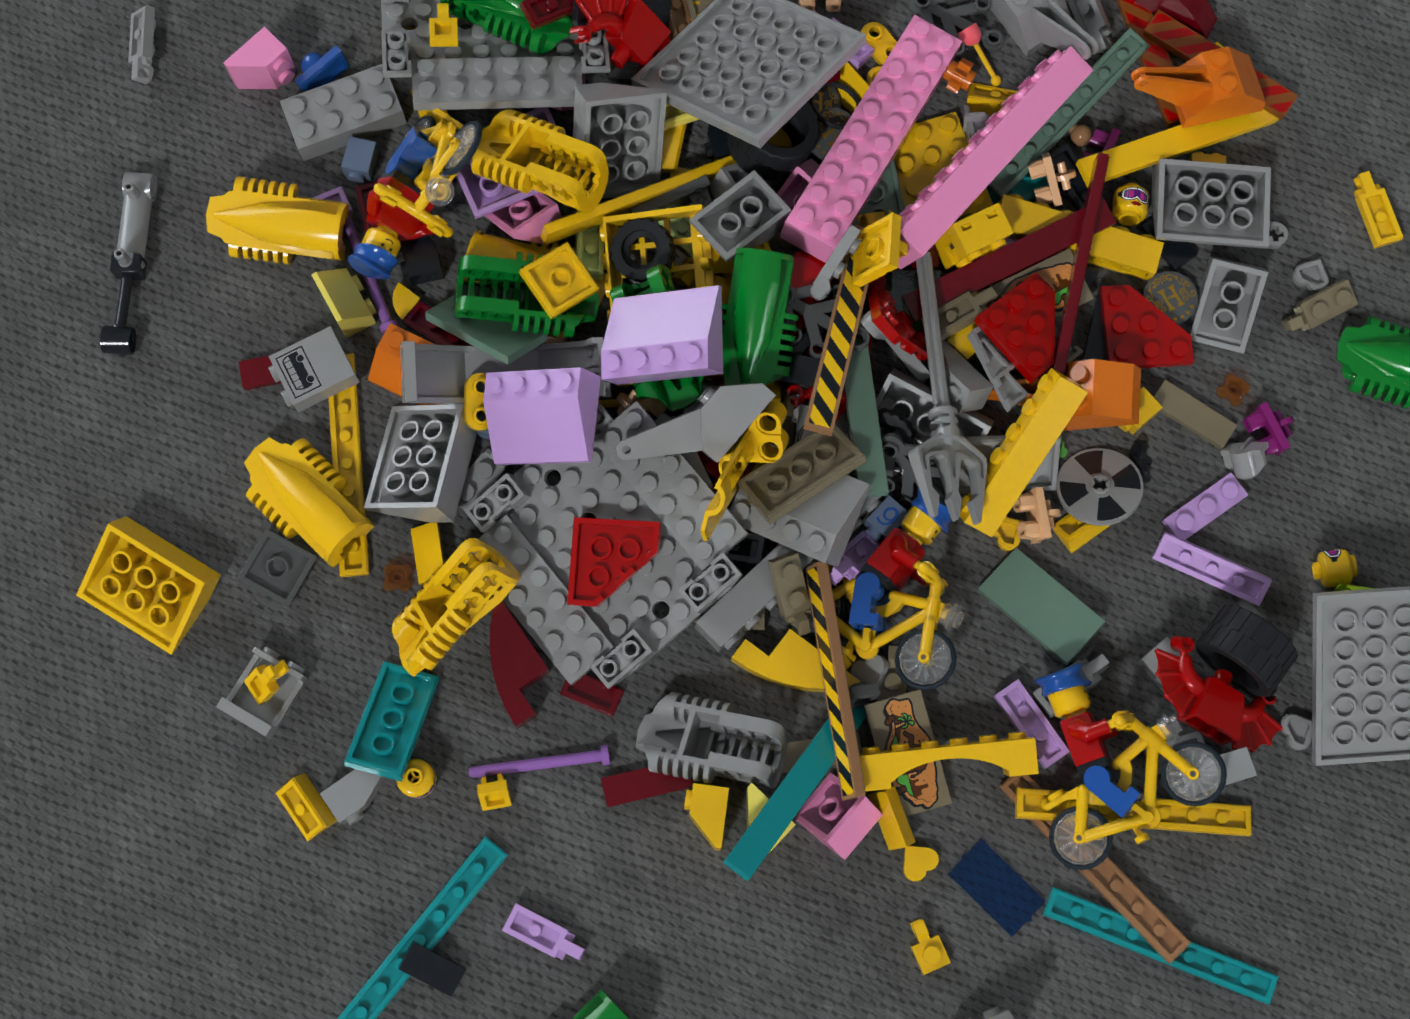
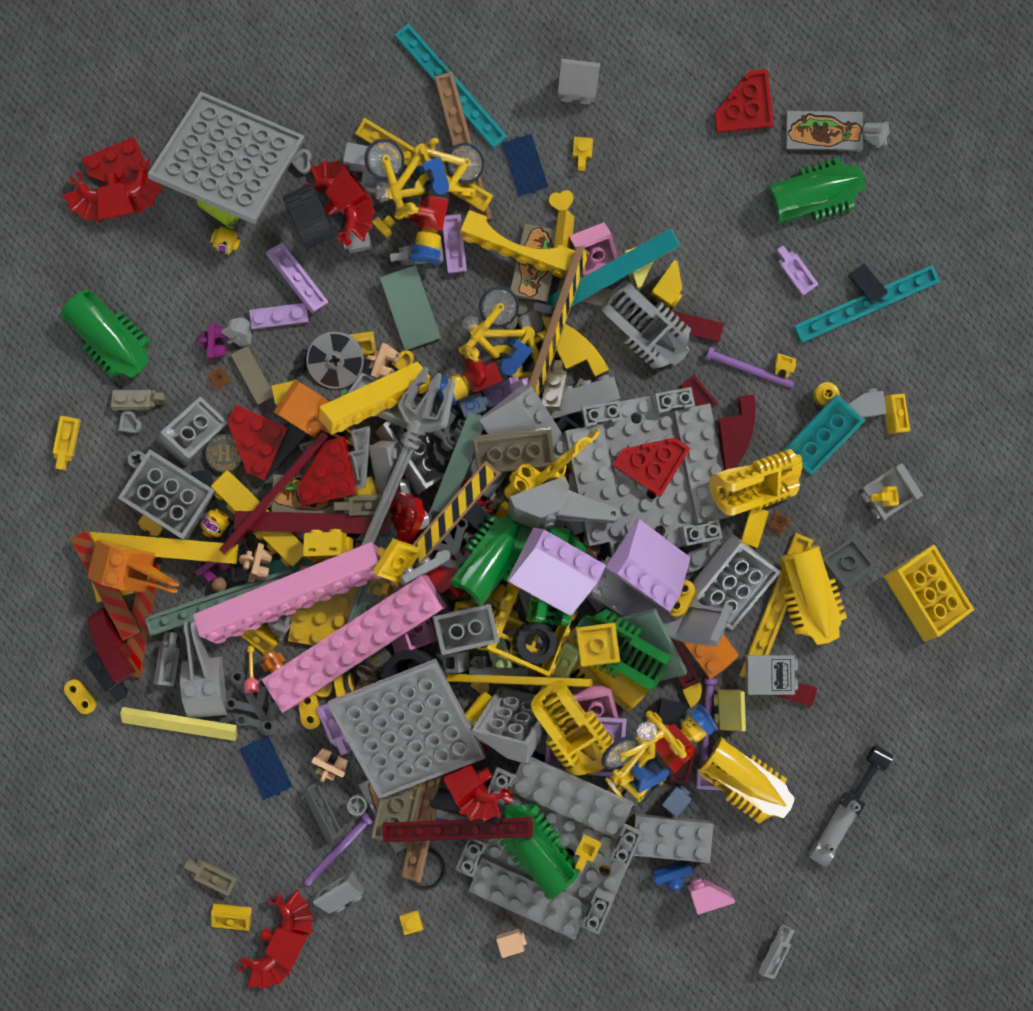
camera: 150 degrees left, 10 degrees up
(1138, 697) = (383, 226): none -> yellow tile

